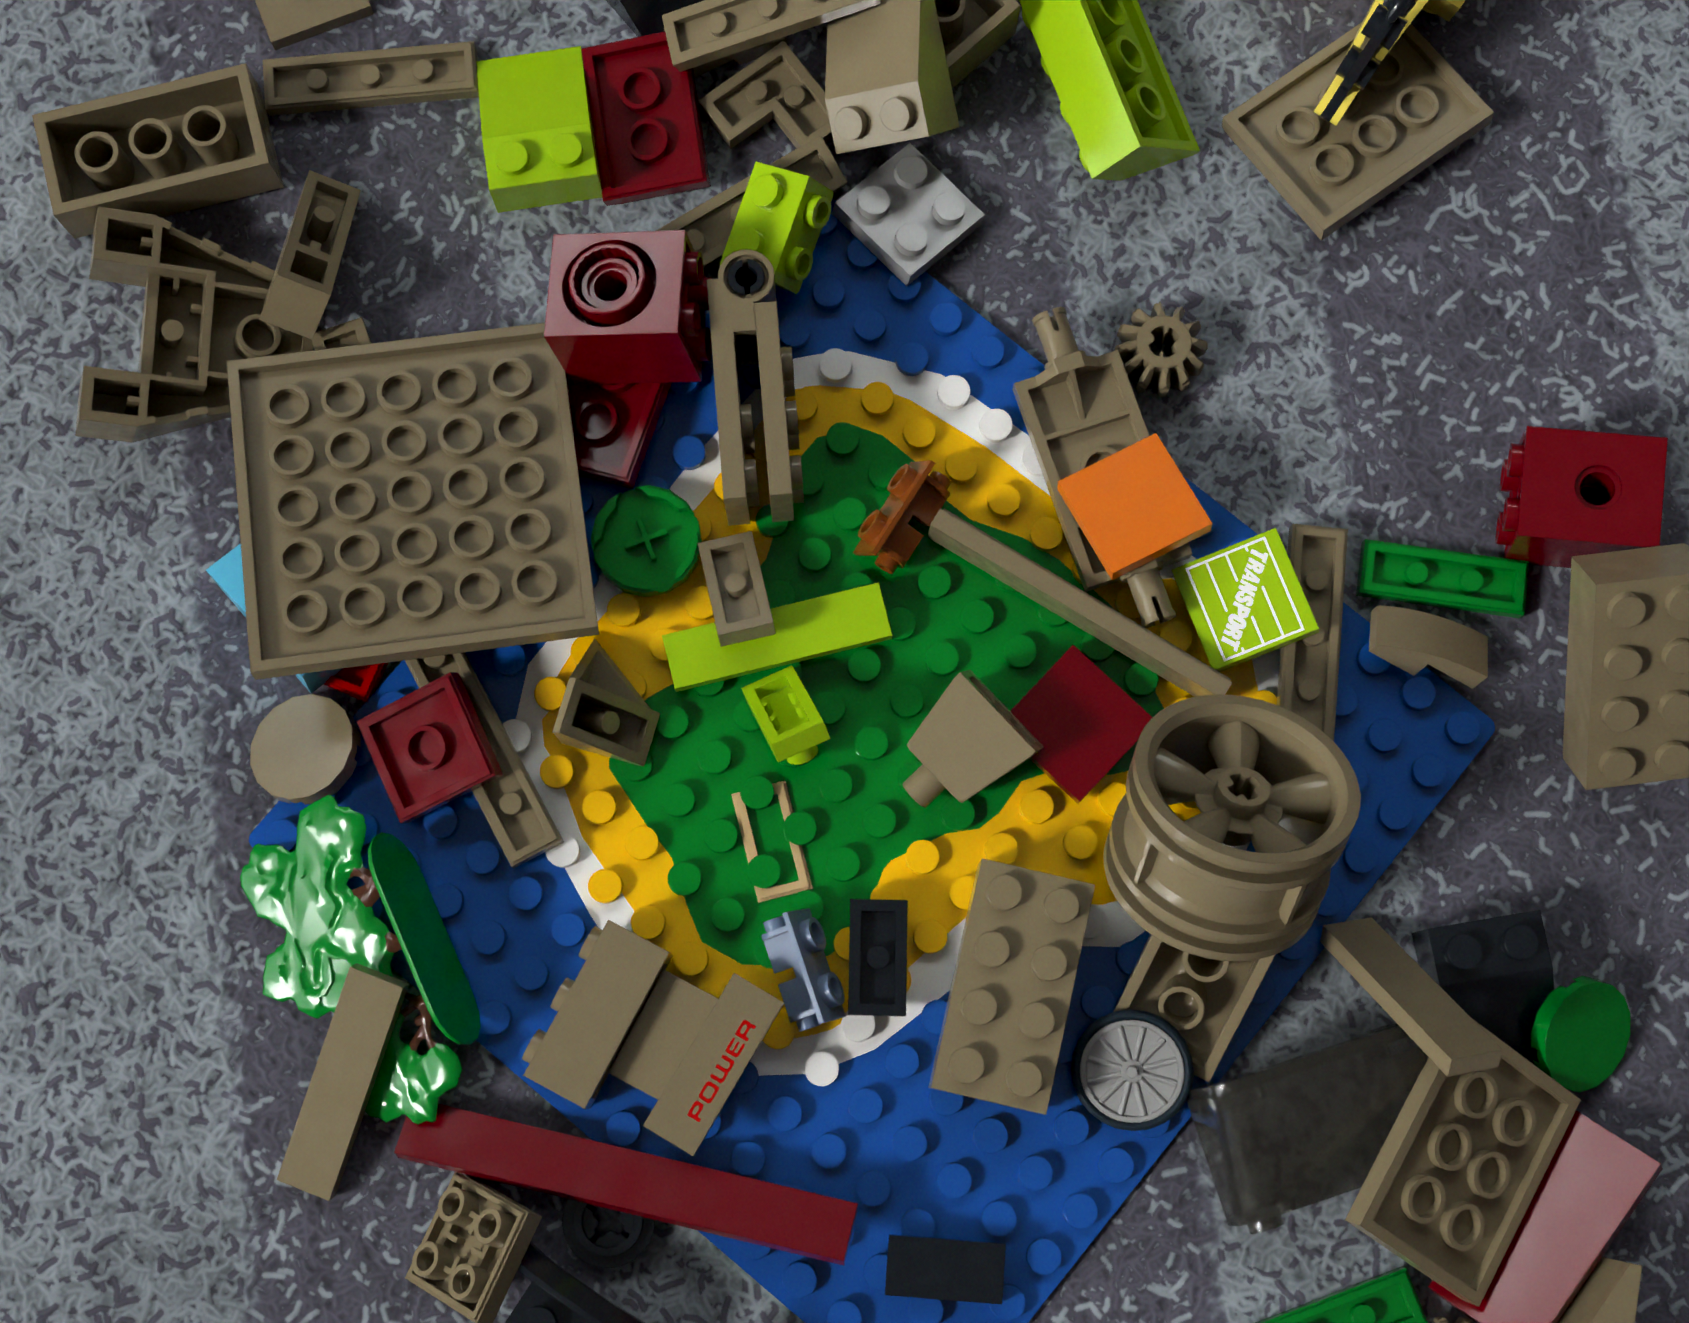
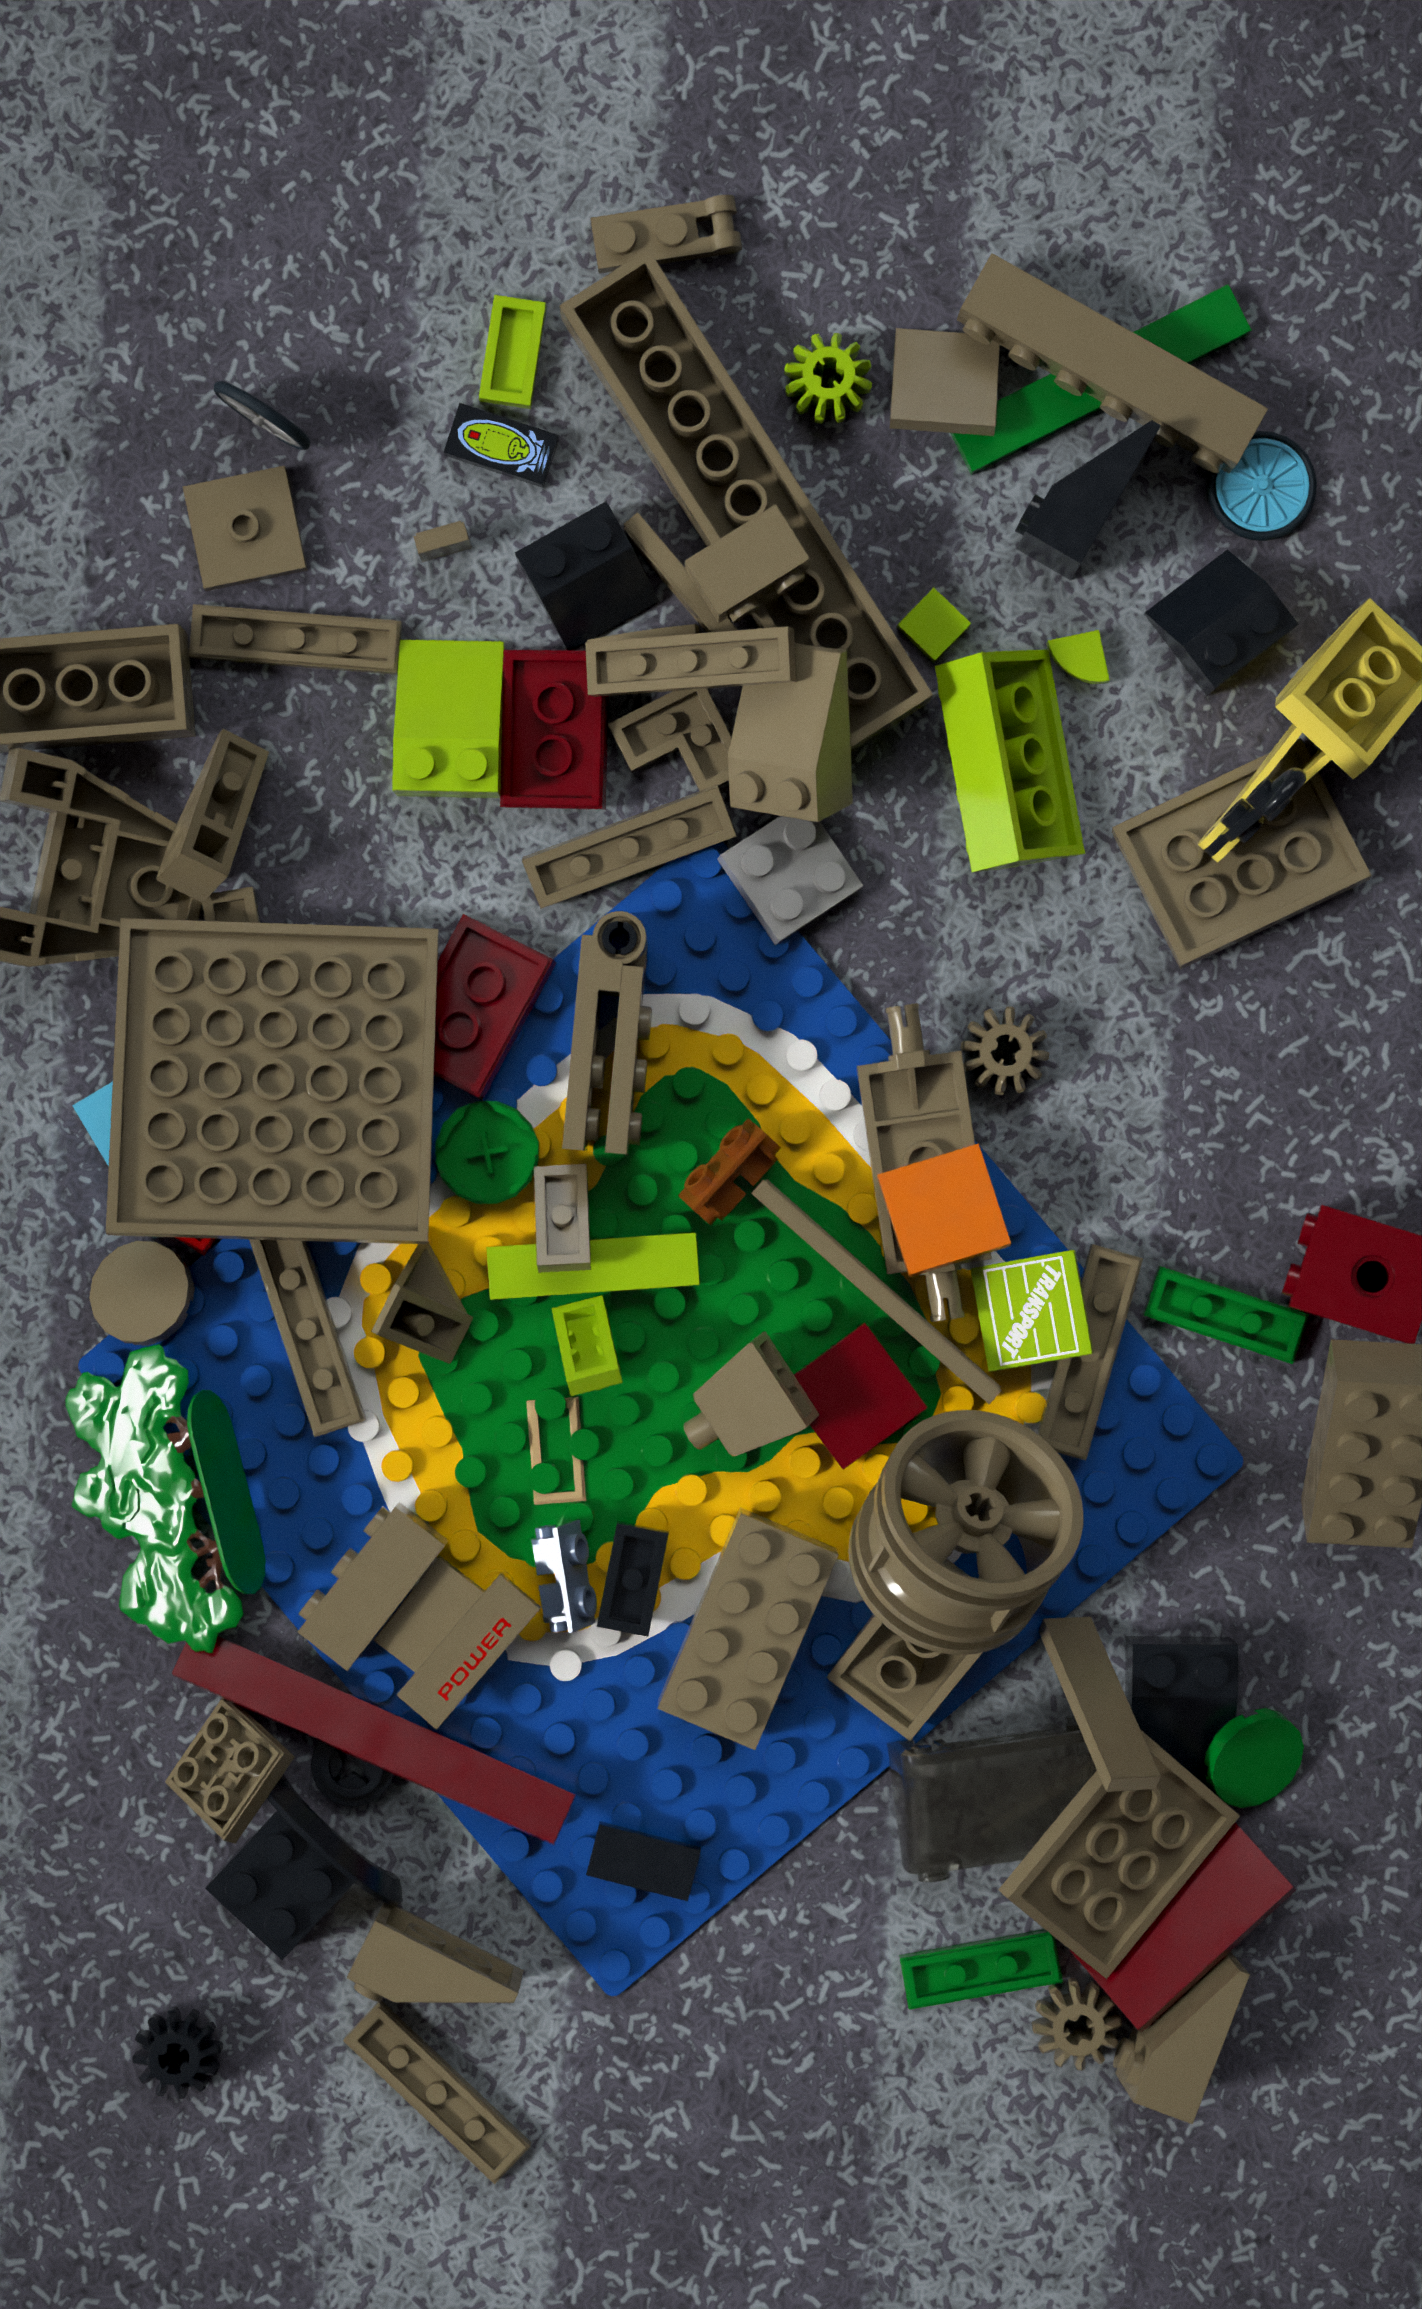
camera: 10 degrees right, 10 degrees up
(342, 1081) = (134, 1603): dark tan tile -> none
(429, 747) = (256, 1316): dark red tile -> none
(628, 307) = (538, 946): dark red brick -> none
(782, 221) = (660, 873): lime bracket -> none
(1132, 1070) = (843, 1718): light grey wheel -> none
(1422, 639) = (1191, 1373): dark tan slope -> none

